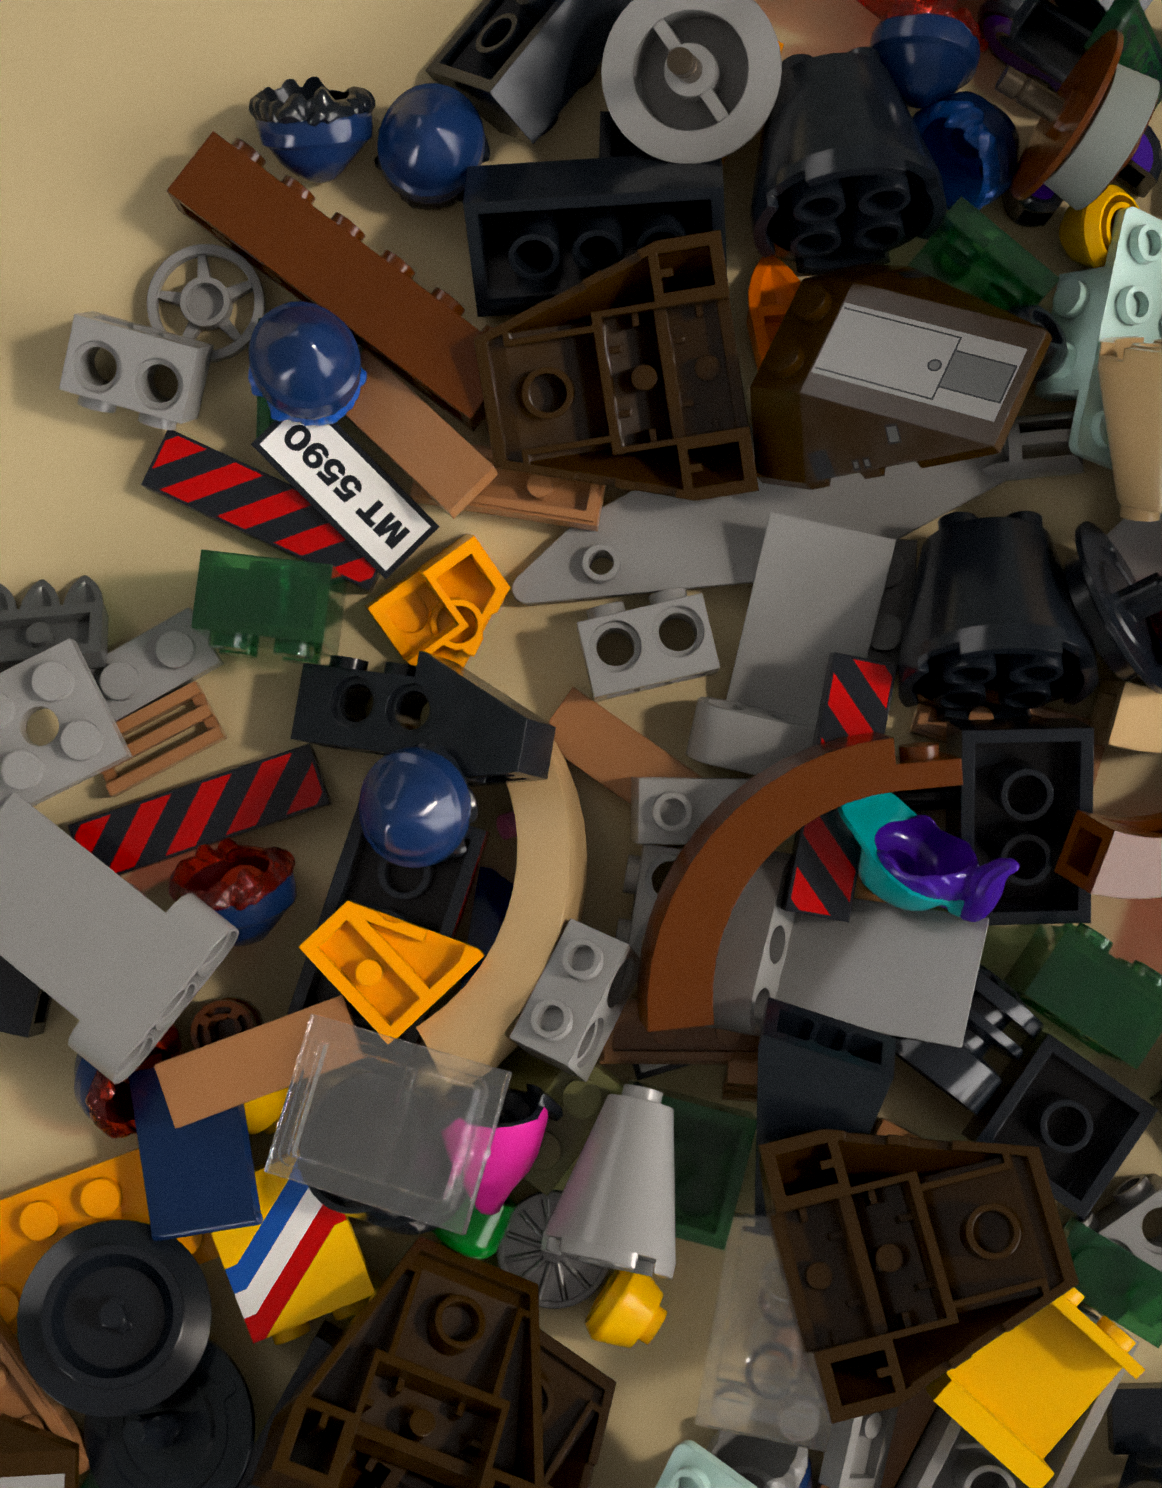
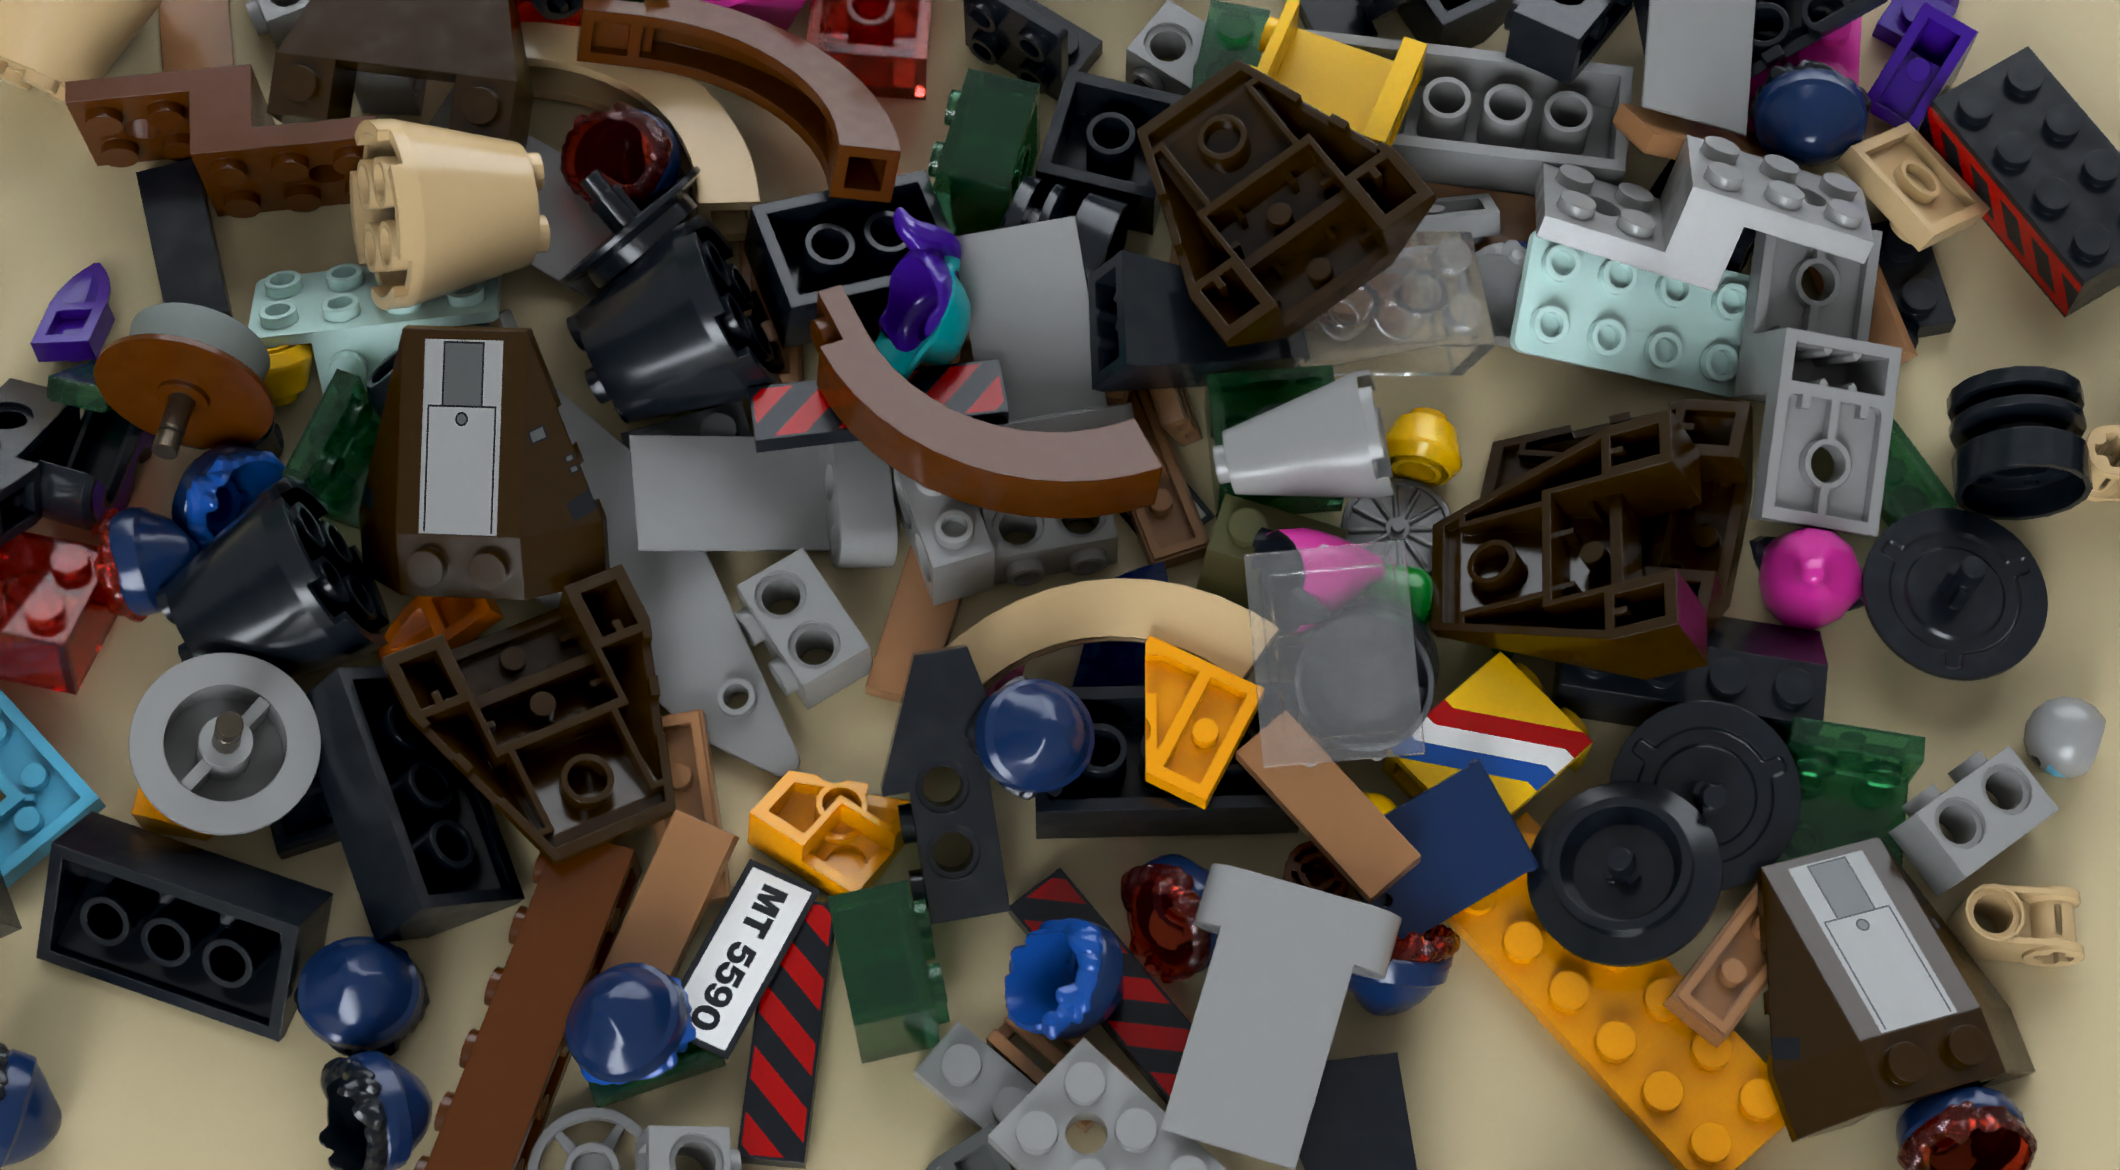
camera: 110 degrees left, 20 degrees down
(200, 761) = (1064, 979): none -> blue hair
(577, 1000) = (1159, 548): light grey brick -> none

